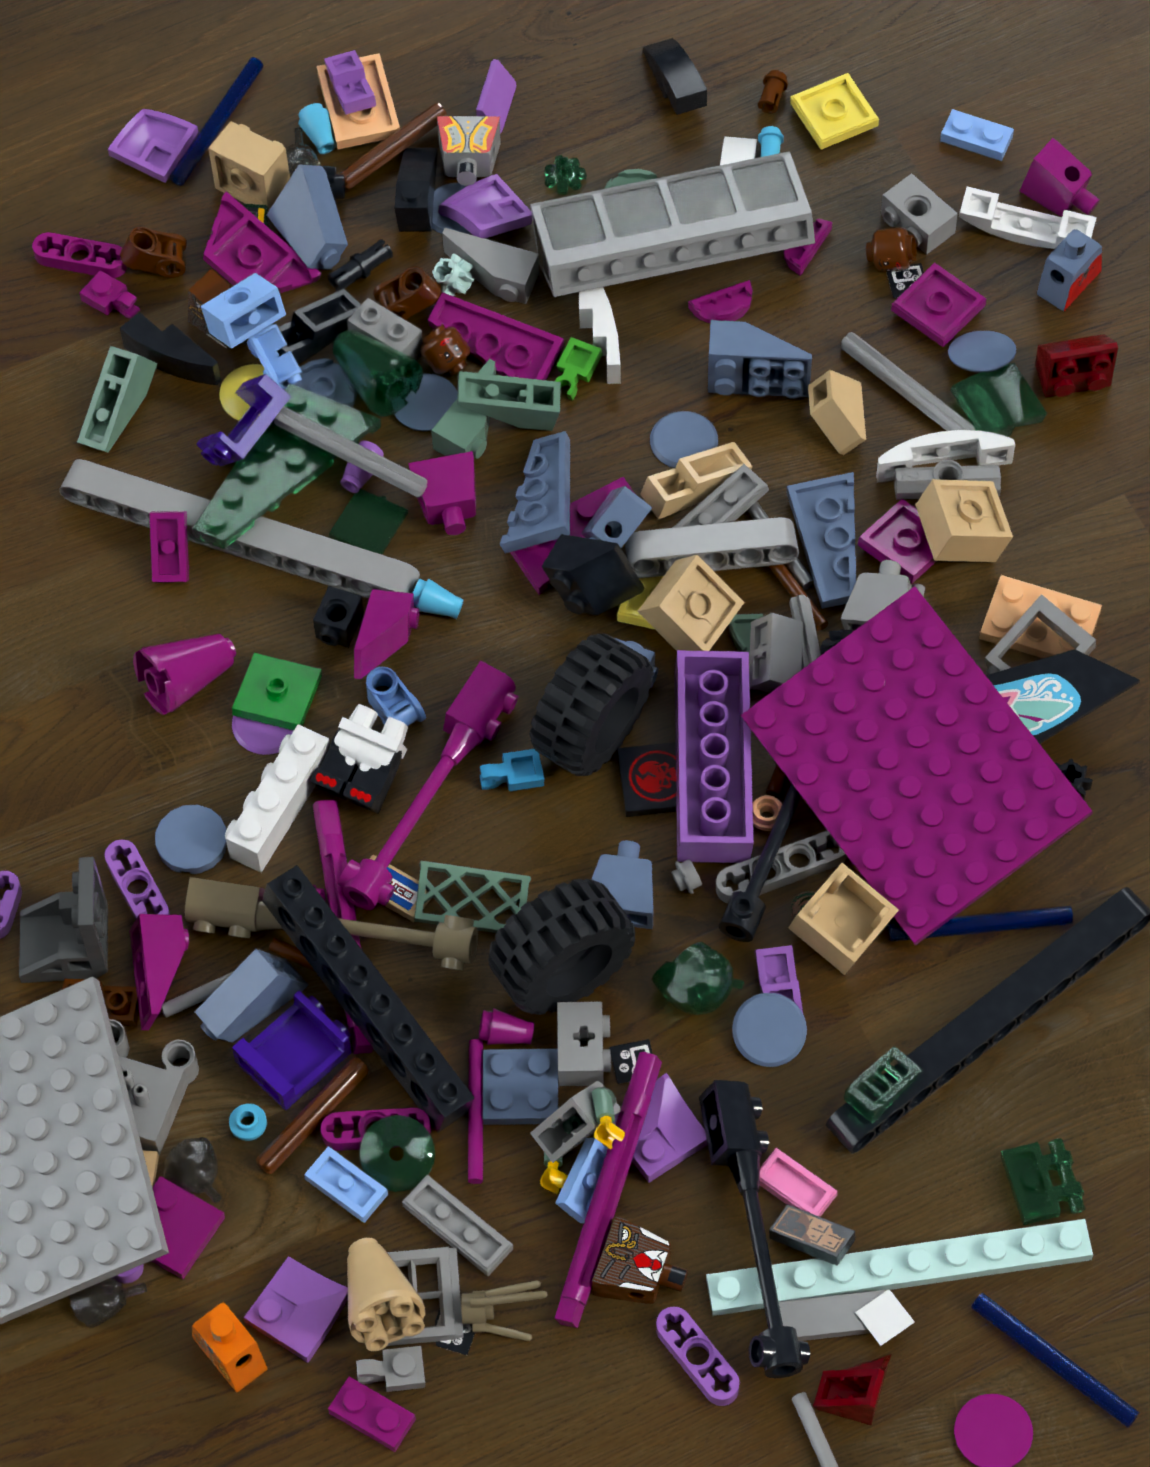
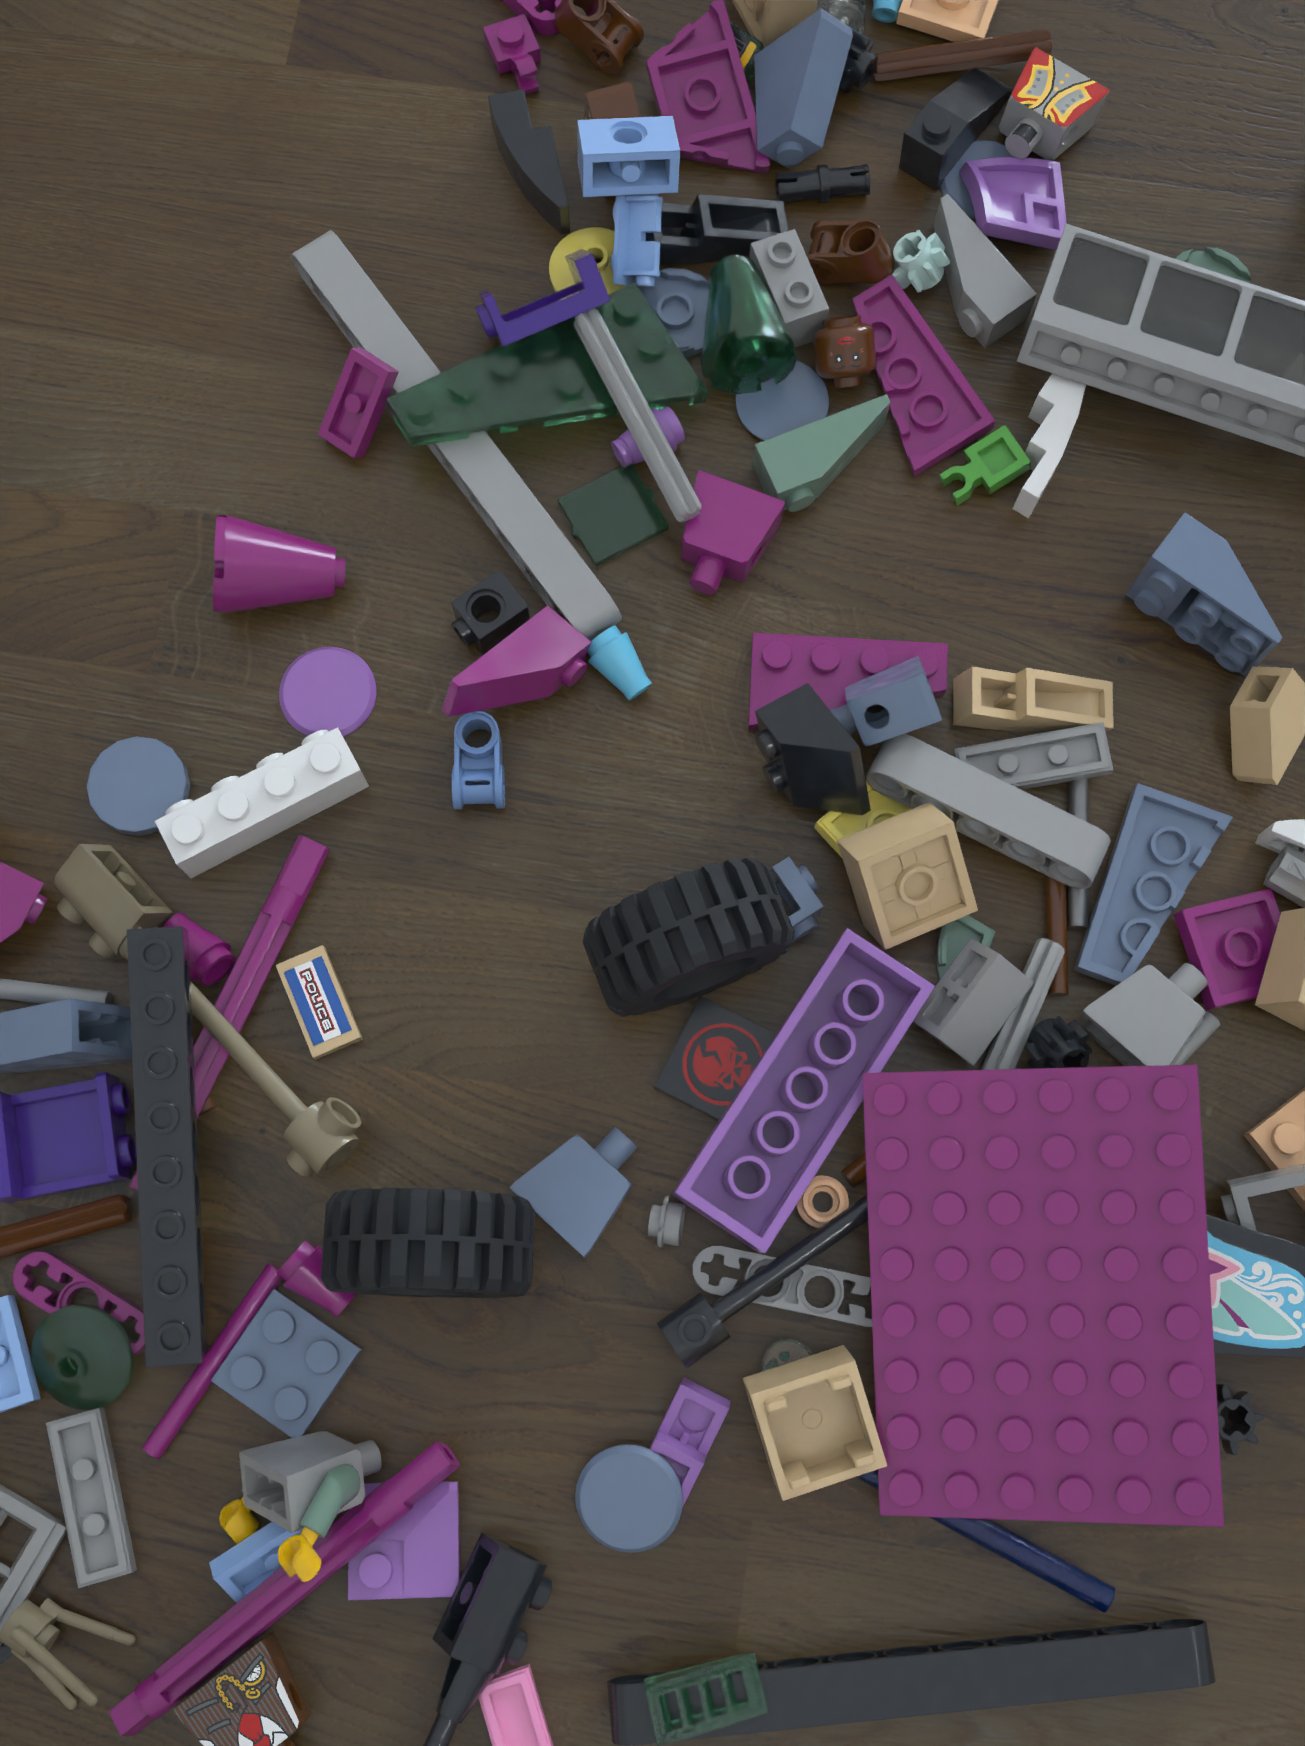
camera: 30 degrees right, 15 degrees up
(116, 397) = (435, 178): sand green slope -> none
(138, 871) = (56, 772): medium lavender beam -> none
(276, 692) = (359, 663): green plate -> none
(362, 760) = (386, 819): hips -> none
(455, 873) = (400, 1033): sand green window -> none
(468, 723) = (550, 850): magenta bar -> none
(496, 93) = (1127, 61): medium lavender slope -> none
(511, 399) = (873, 461): sand green slope -> none
(518, 769) = (559, 947): dark azure plate -> none
(543, 497) = (830, 612): sand blue wing -> none
(564, 174) = (1141, 211): clear green plant -> none
(582, 1023) = (362, 1380): light grey brick -> none
(625, 1058) = (443, 1418): black sticker -> none
(681, 436) = (1055, 635): sand blue piece -> none
(696, 980) = (579, 1382): clear green helmet -> none
(724, 304) = (1221, 494): magenta tile -> none

